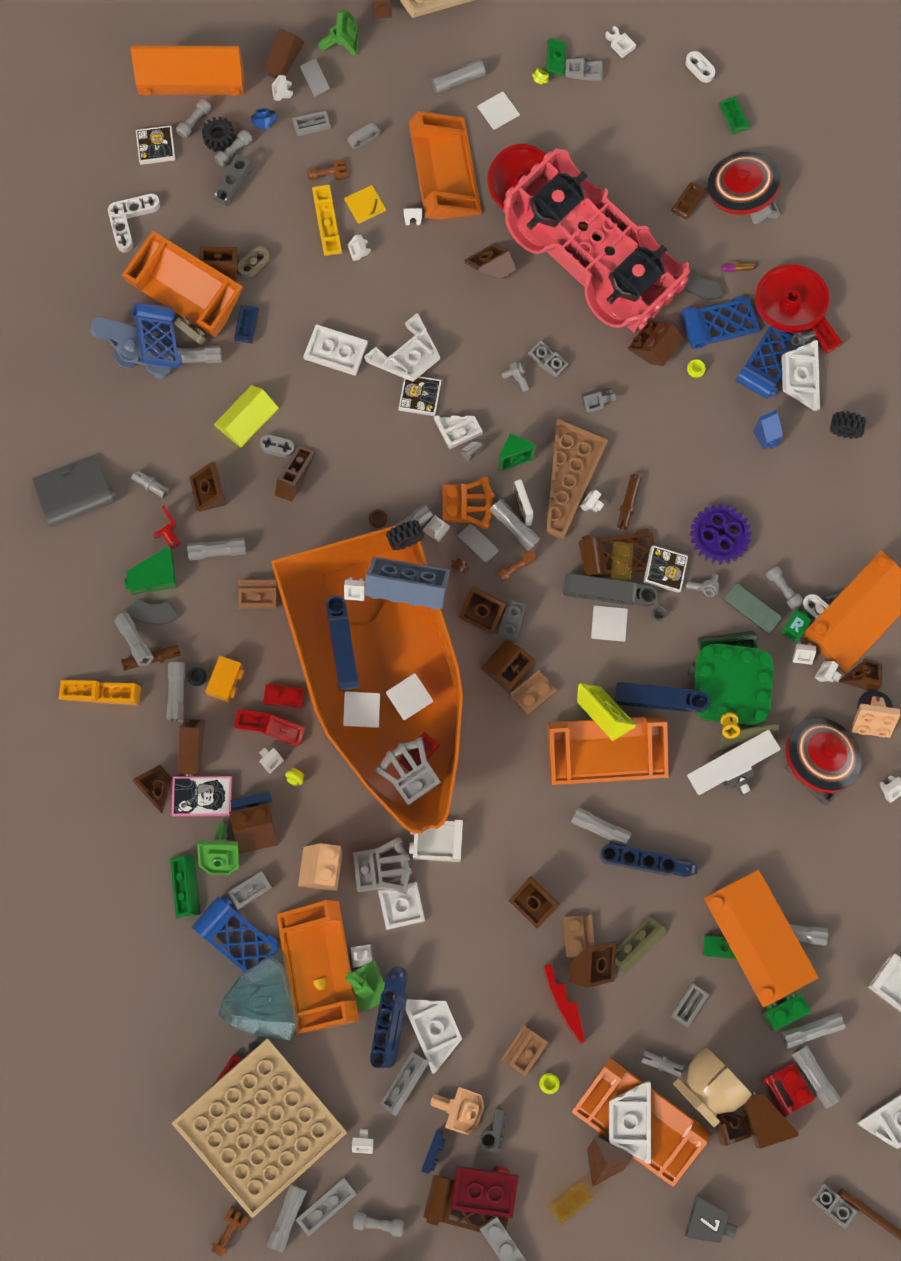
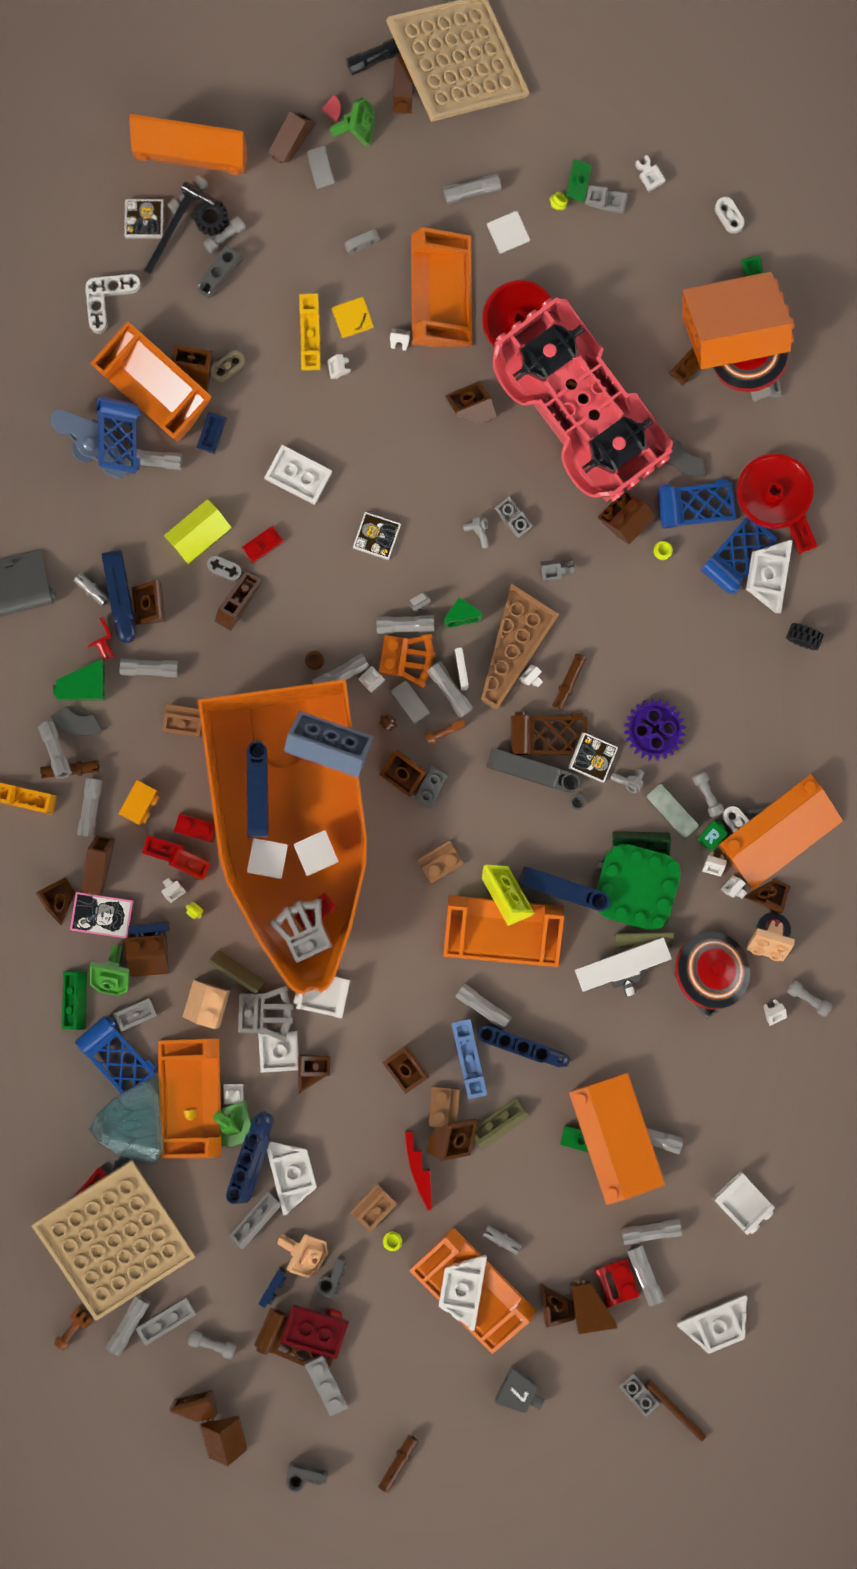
camera: 10 degrees right, 10 degrees up
(178, 486) = (119, 596): none -> dark blue piece
(196, 114) = (190, 193): none -> black bar
(196, 334) = (149, 426): dark tan plate -> none
(197, 676) = (112, 795): black plate -> none
(264, 118) = (260, 206): blue plate -> none
(280, 88) = (282, 174): white tile -> none
(310, 418) = (262, 544): none -> red plate
(311, 126) = (307, 225): light grey tile -> none
(317, 27) = (332, 108): none -> coral tile
(337, 169) = (328, 275): dark orange hinge -> none
(346, 832) = (236, 971): none -> olive slope
(354, 589) = (275, 743): white tile -> none
(362, 1144) = (208, 1269): white tile -> none
(405, 535) = (333, 696): black tyre -> none
(411, 358) = (374, 496): white wing -> none
(438, 919) = (312, 1070): none -> reddish brown slope
(449, 473) = (419, 623): none -> light grey axle
(458, 429) = (409, 579): white wing -> none
(508, 665) = (419, 832): reddish brown slope -> none
(570, 1202) = (393, 1353): clear yellow plate -> none
(595, 882) = (469, 1059): none -> medium blue slope
(605, 1160) = (433, 1320): reddish brown slope -> none
(609, 623) = (527, 803): white sticker -> none
(622, 561) = (550, 743): clear yellow plate -> none
(680, 1019) = (549, 1177): light grey tile -> none
(712, 1087) = (543, 1272): tan plate -> none
(727, 149) = (737, 320): none -> orange container
(728, 724) = (624, 928): yellow bush -> none
(736, 266) = (726, 445): piece -> none
(769, 430) = (723, 630): blue slope -> none
(786, 1012) = (628, 1211): green brick -> none
(800, 339) = (774, 536): dark grey pin -> none

